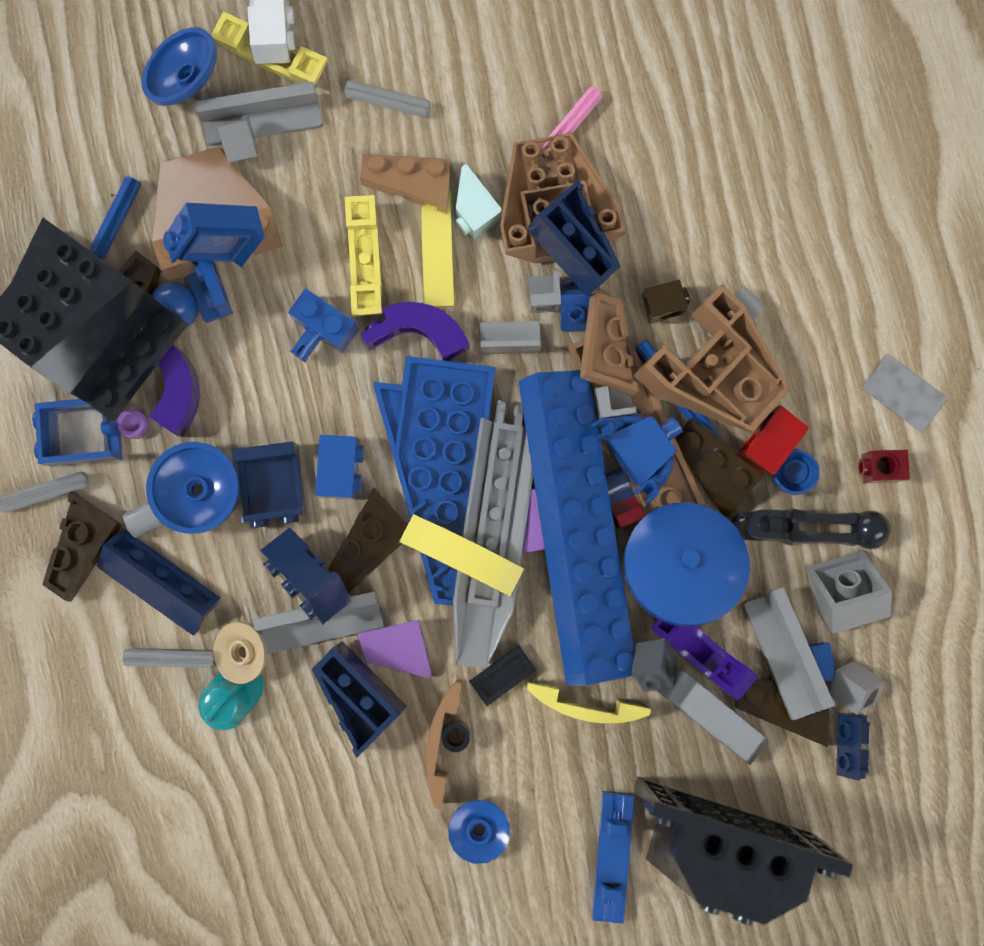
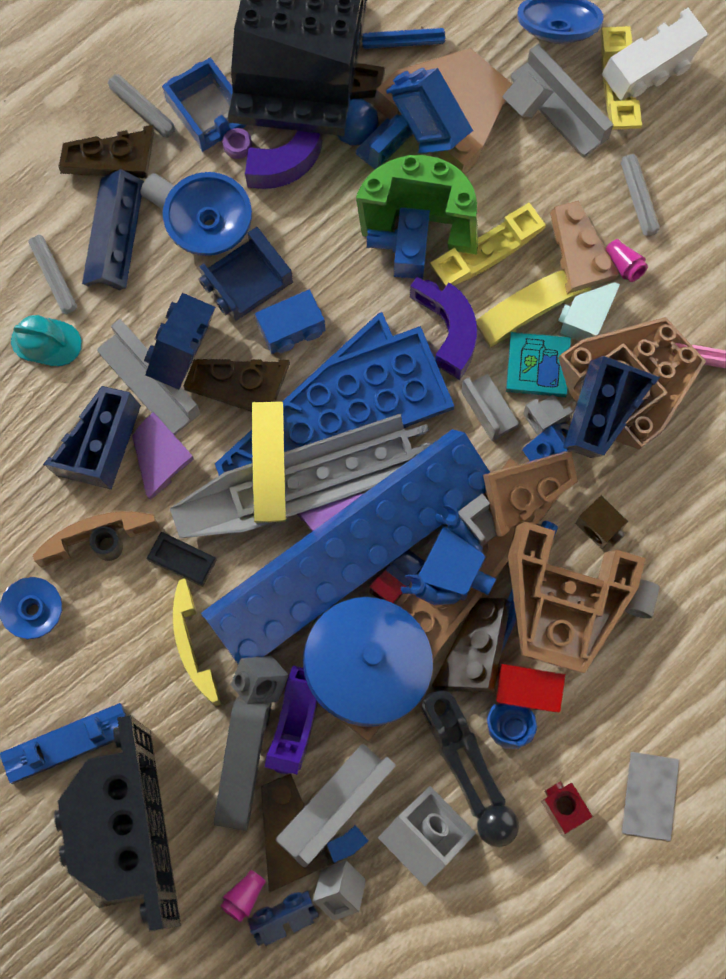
camera: 65 degrees right, 10 degrees down
(230, 653) = (86, 325): tan dish -> none
(281, 280) = (424, 185): none -> bright green cylinder
(443, 145) = (627, 261): none -> dark pink cone
(493, 275) = (535, 364): none -> teal tile
(820, 771) = (242, 897): none -> dark pink cone

